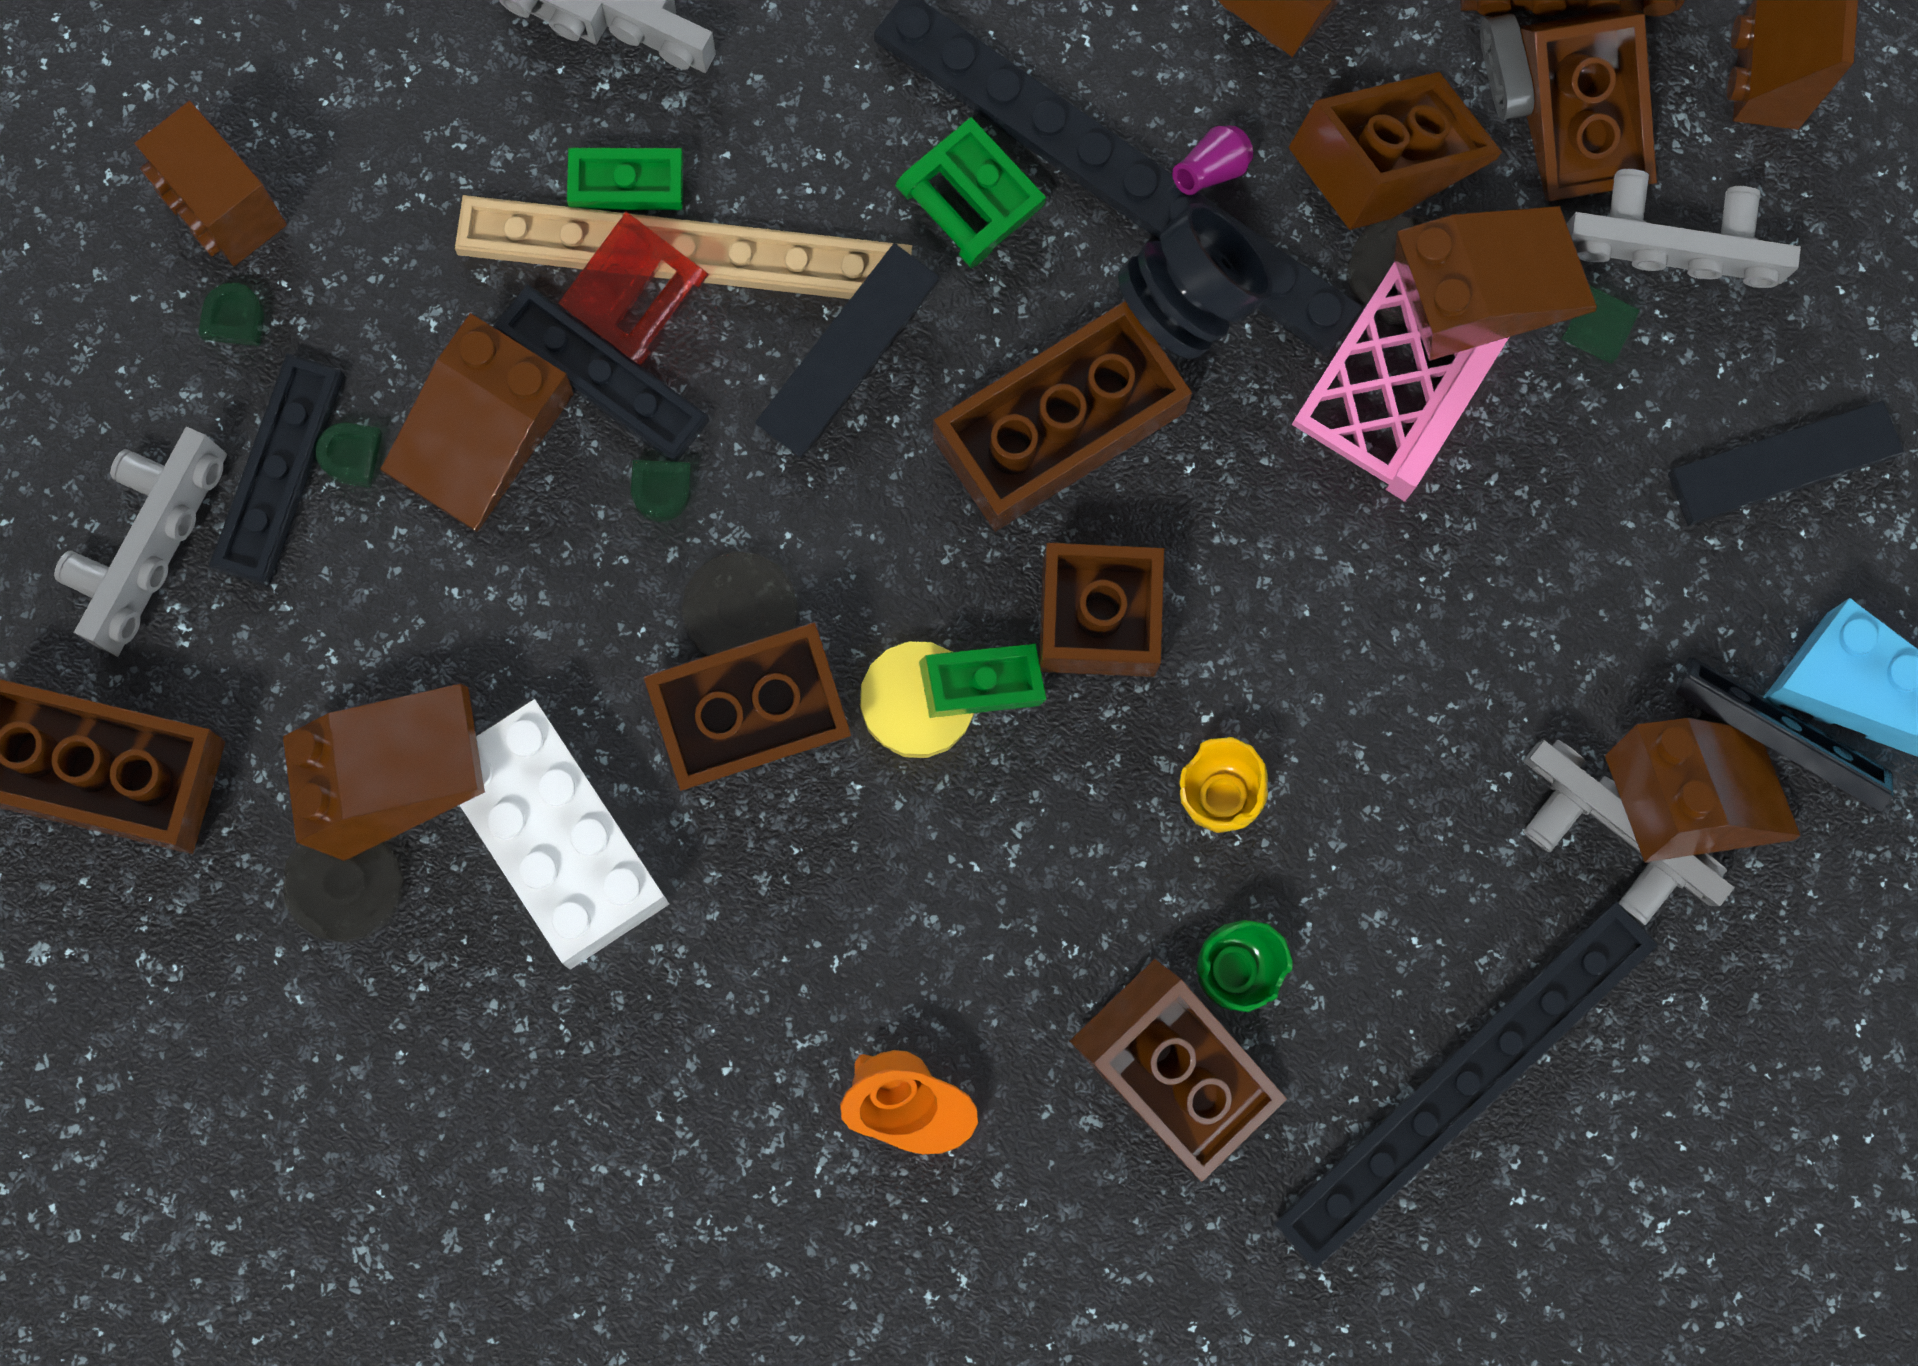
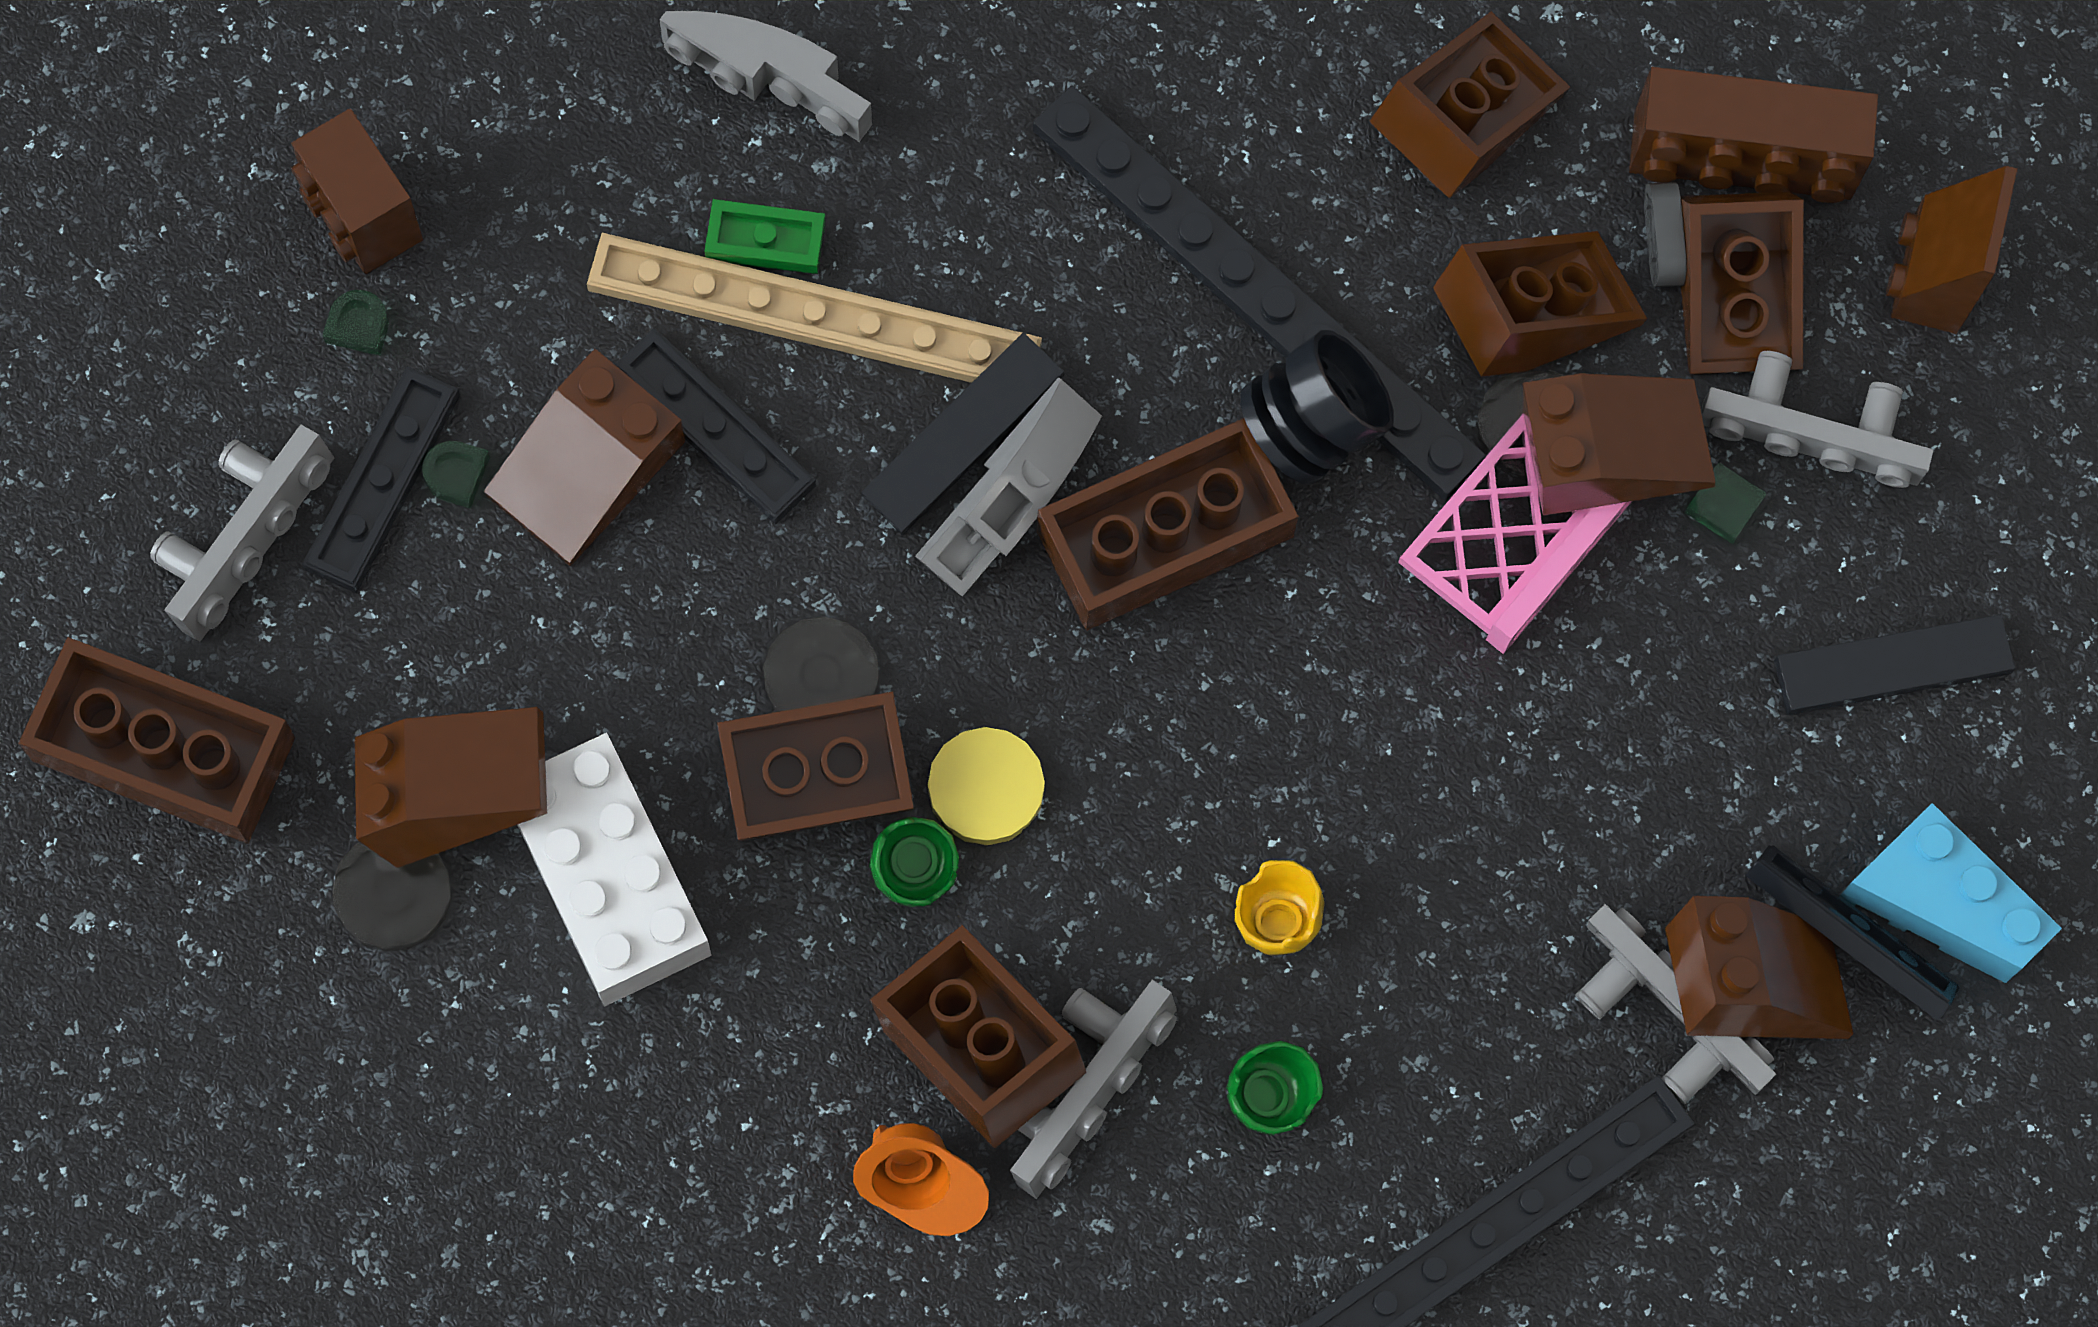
camera: 10 degrees right, 5 degrees down
(618, 277) = (745, 332): clear red plate -> none
(660, 488) = (758, 546): clear green tile -> none
(858, 786) = (914, 861): none -> green hair
(907, 400) = (1018, 483): none -> light grey slope
(946, 956) = (978, 1036): none -> reddish brown brick
(982, 680) = (1052, 773): green plate -> none
(983, 179) = (1123, 282): green plate -> none
(1057, 1016) = (1112, 1069): none -> light grey plate
(1101, 609) = (1180, 719): reddish brown brick -> none
(1178, 1069) = (1196, 1182): reddish brown slope -> none
(1215, 159) = (1357, 290): magenta cone -> none

